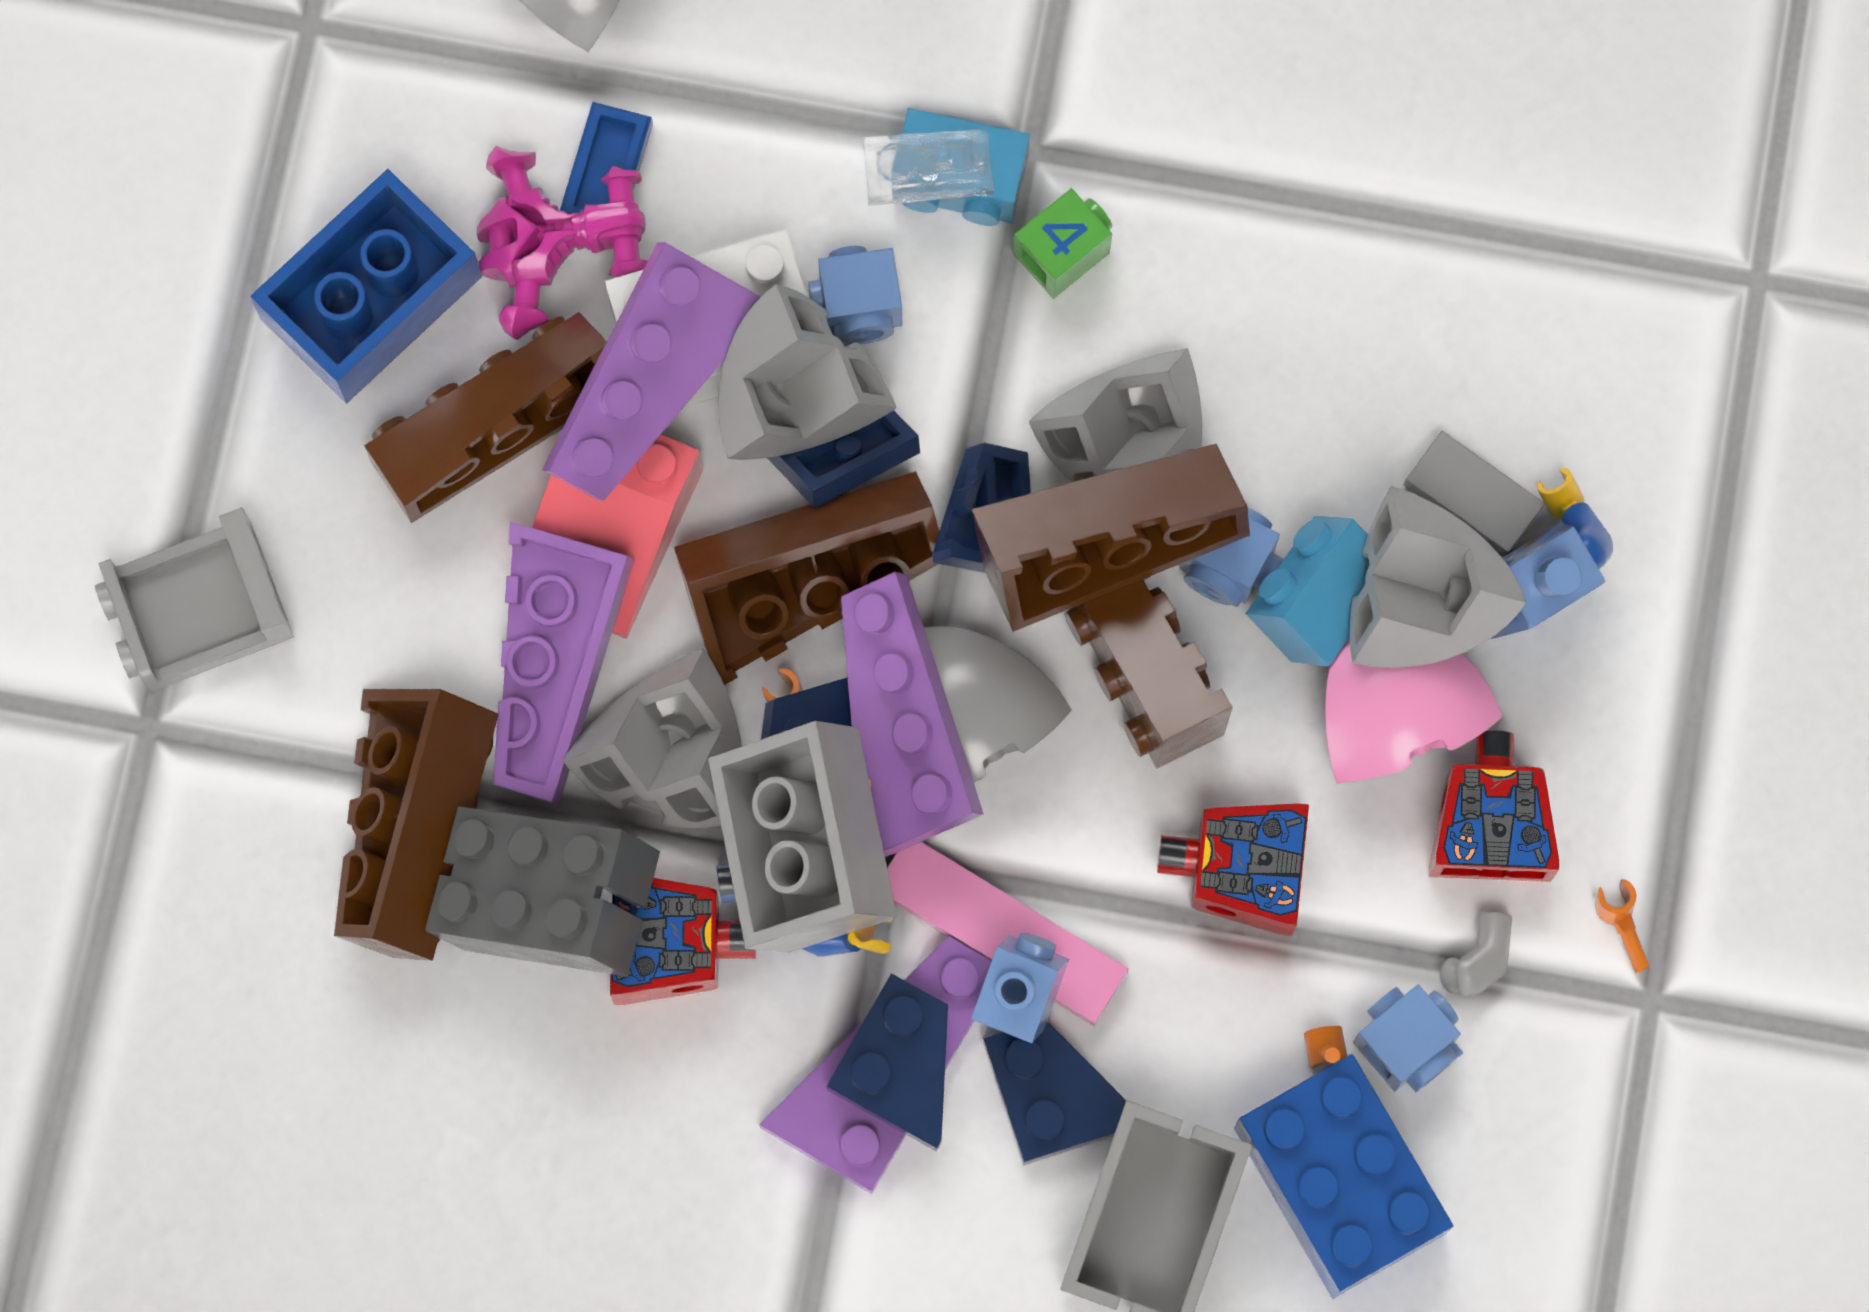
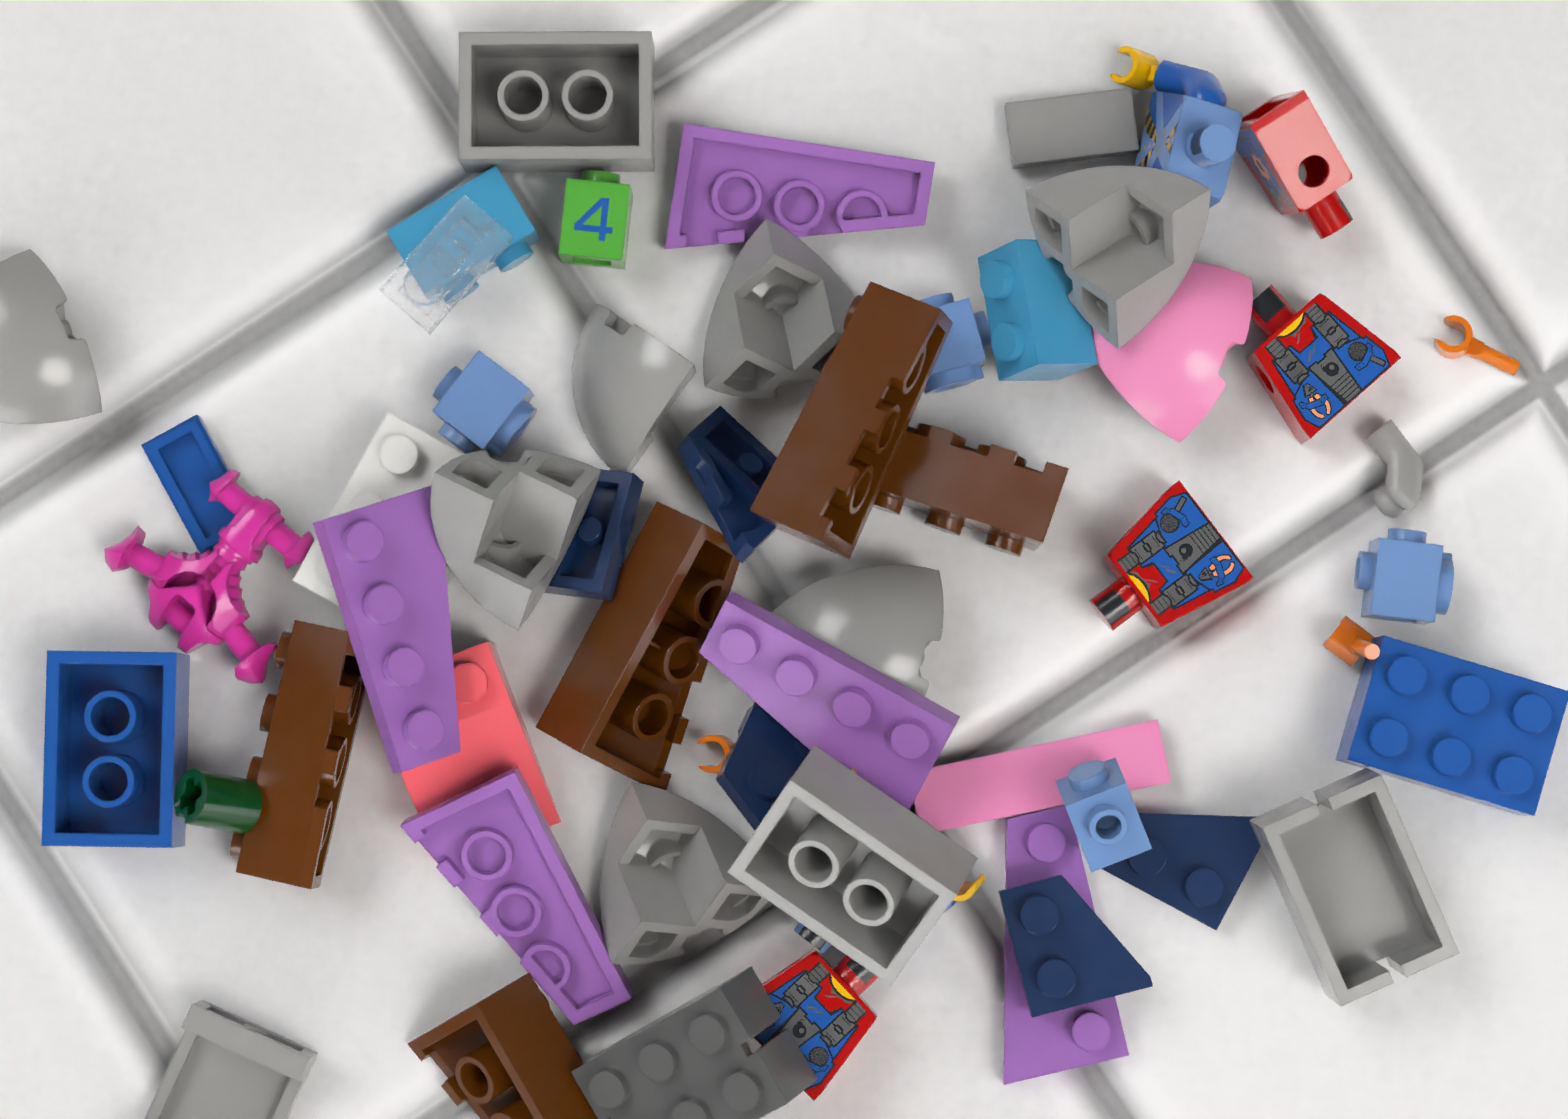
camera: 40 degrees left, 10 degrees up
(401, 382) = (218, 801): none -> dark green piece
(971, 371) = (623, 386): none -> light grey brick
(1117, 132) = (557, 101): none -> light grey brick
(1235, 352) = (740, 179): none -> medium lavender wing
(1627, 634) = (1273, 146): none -> torso

